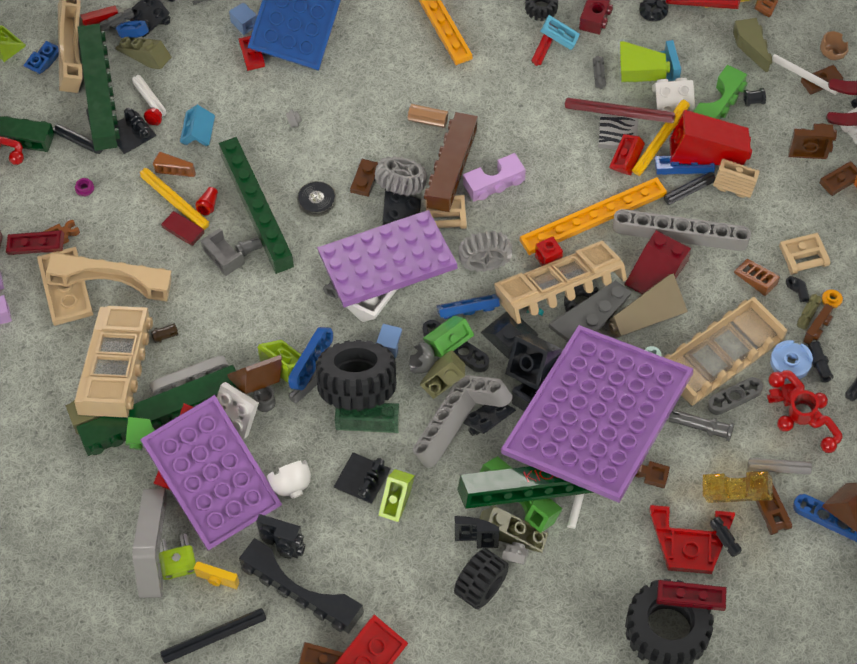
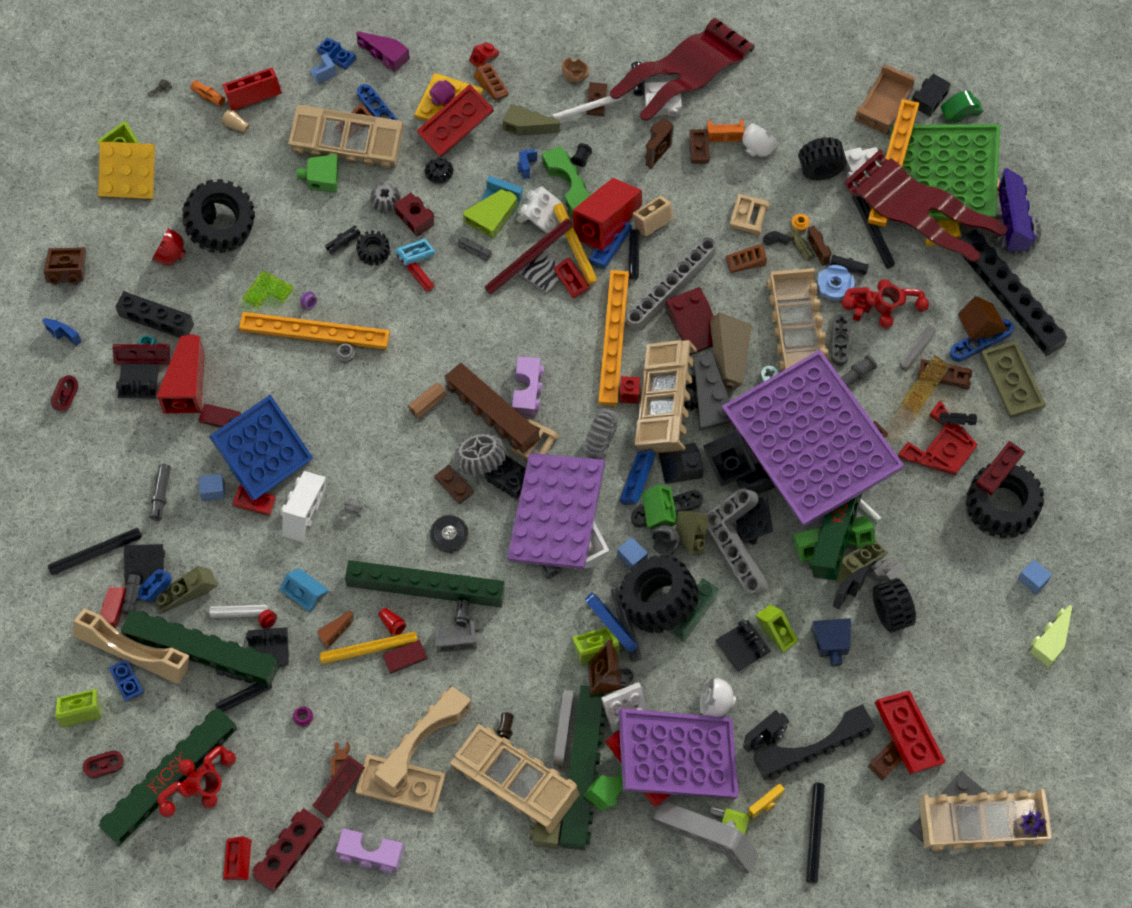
camera: 60 degrees left, 5 degrees up
(267, 82) = (301, 505): none -> white wedge
(416, 548) = (832, 638): none -> dark blue torso
(430, 34) = (345, 348): none -> light grey plate
(711, 59) = (524, 158): none -> blue bracket
(811, 568) = (1013, 379): none -> olive plate

